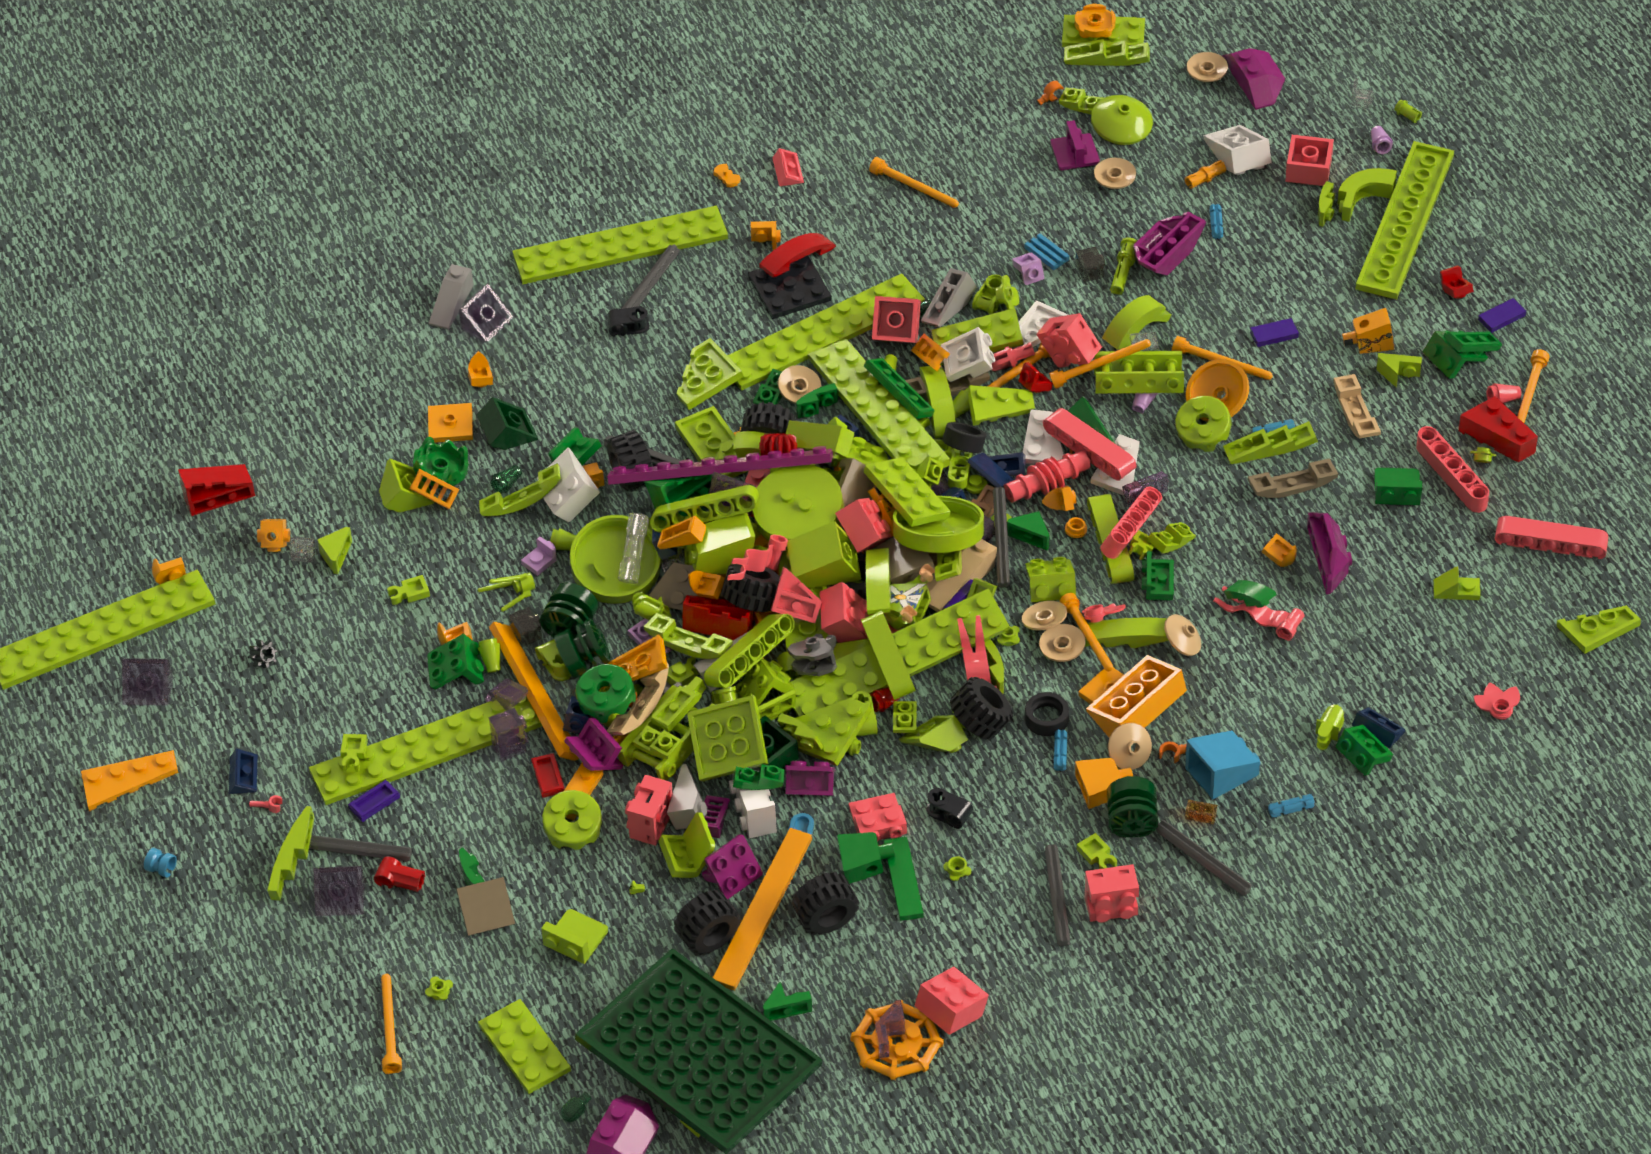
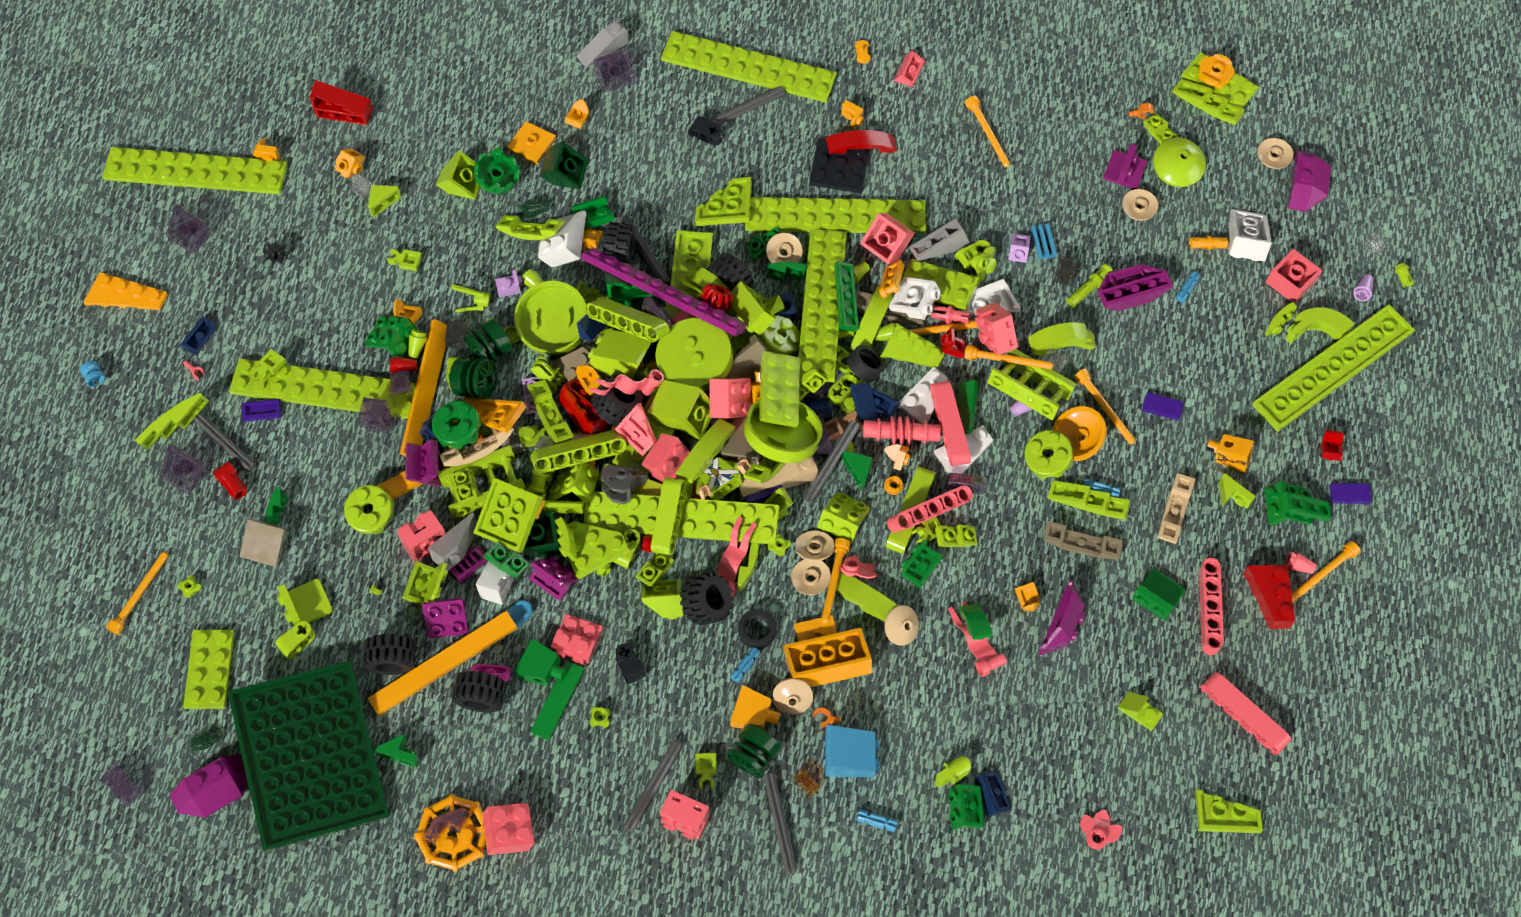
camera: 30 degrees right, 15 degrees up
(414, 487) = (471, 194): light orange slope -> none
(486, 682) = (401, 364): none -> red cone
(547, 775) = (385, 461): red tile -> none
(594, 969) = (294, 640): none -> lime piece
(630, 563) = (556, 329): clear axle -> none
(678, 704) = (500, 464): lime hinge -> none
(683, 533) = (596, 331): light orange slope -> none
(1483, 455) = (1244, 608): lime plate -> none

